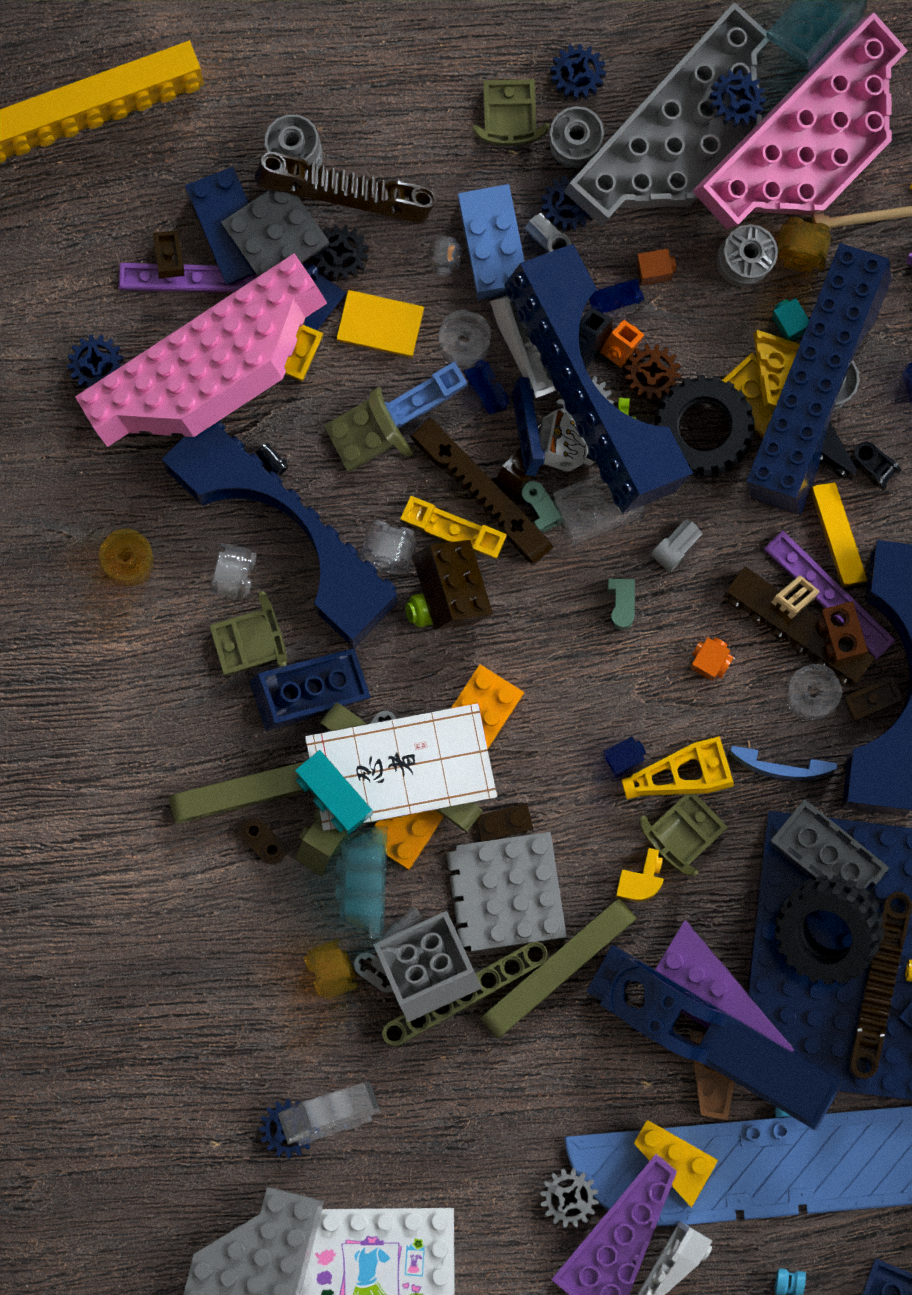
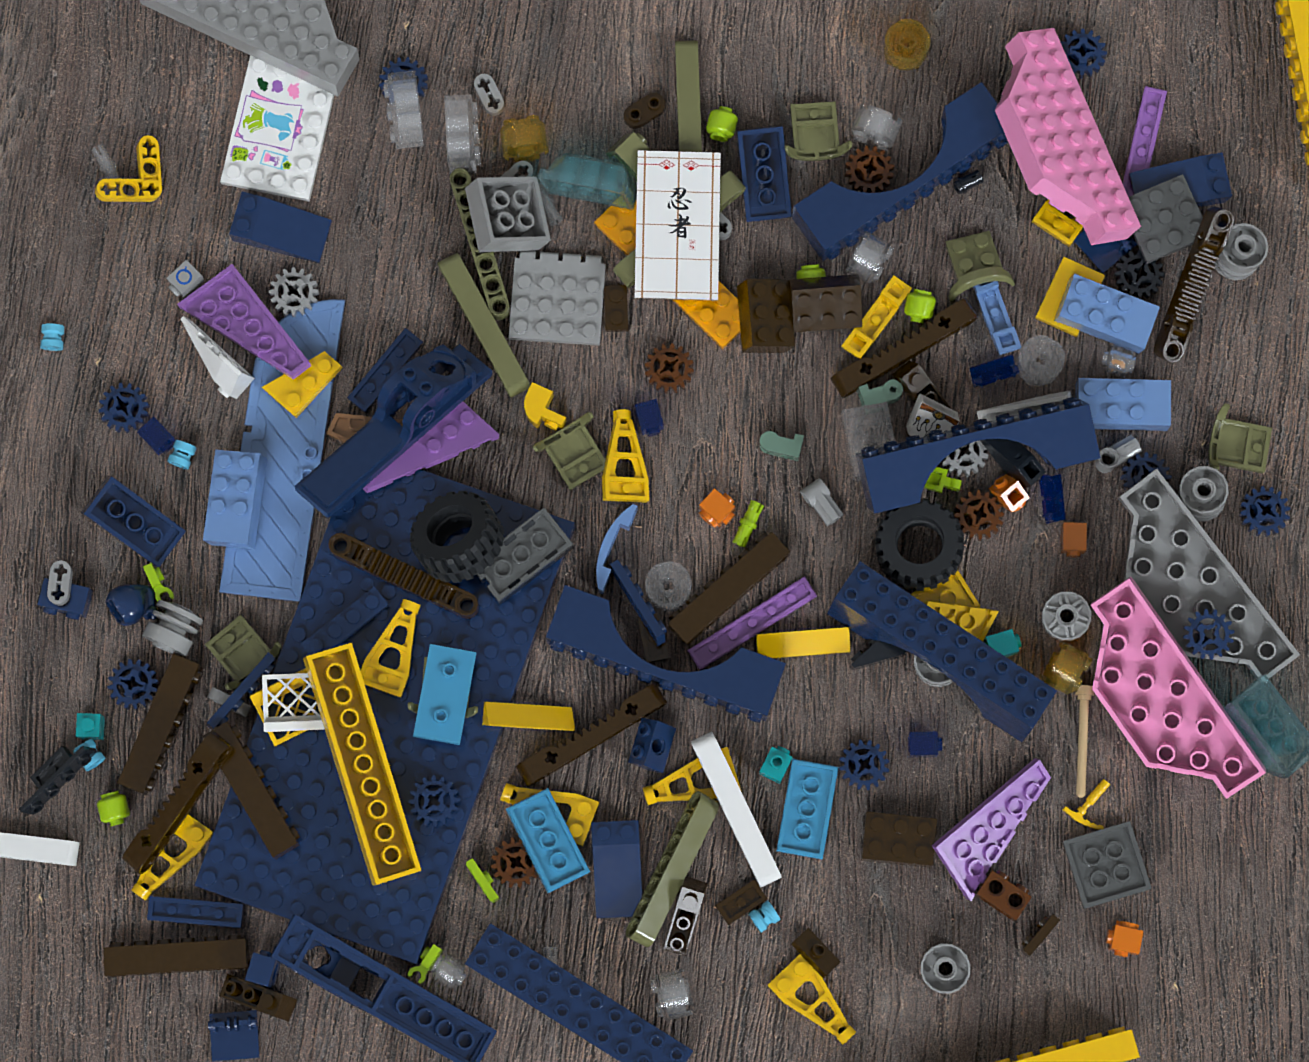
camera: 105 degrees right, 0 degrees up
(168, 254) = (1165, 130): dark brown plate -> none
(263, 747) = (721, 124): none -> lime head
(272, 570) = (878, 172): none -> reddish brown gear
(277, 1020) = (493, 92): none -> light grey beam
(332, 793) = (665, 161): teal brick -> none
(341, 1042) = (462, 133): none -> clear brick
(395, 277) = (1107, 313): none -> medium blue brick
(428, 483) = (919, 305): none -> lime head
(480, 649) = (765, 316): none -> dark brown brick
(495, 1232) = (279, 228): none -> dark blue slope
(527, 427) = (922, 389): dark blue plate -> none
(552, 738) = (676, 362): none -> reddish brown gear
(637, 1070) = (391, 361): none -> dark blue plate
(720, 621) = (747, 524): none -> lime pin
(787, 604) = (746, 575): tan tile -> none
(830, 1206) = (235, 499): none -> medium blue brick
(832, 728) = (634, 593): none -> dark blue plate
(850, 631) = (712, 624): reddish brown brick -> none
(876, 465) = (856, 688): black piece -> none

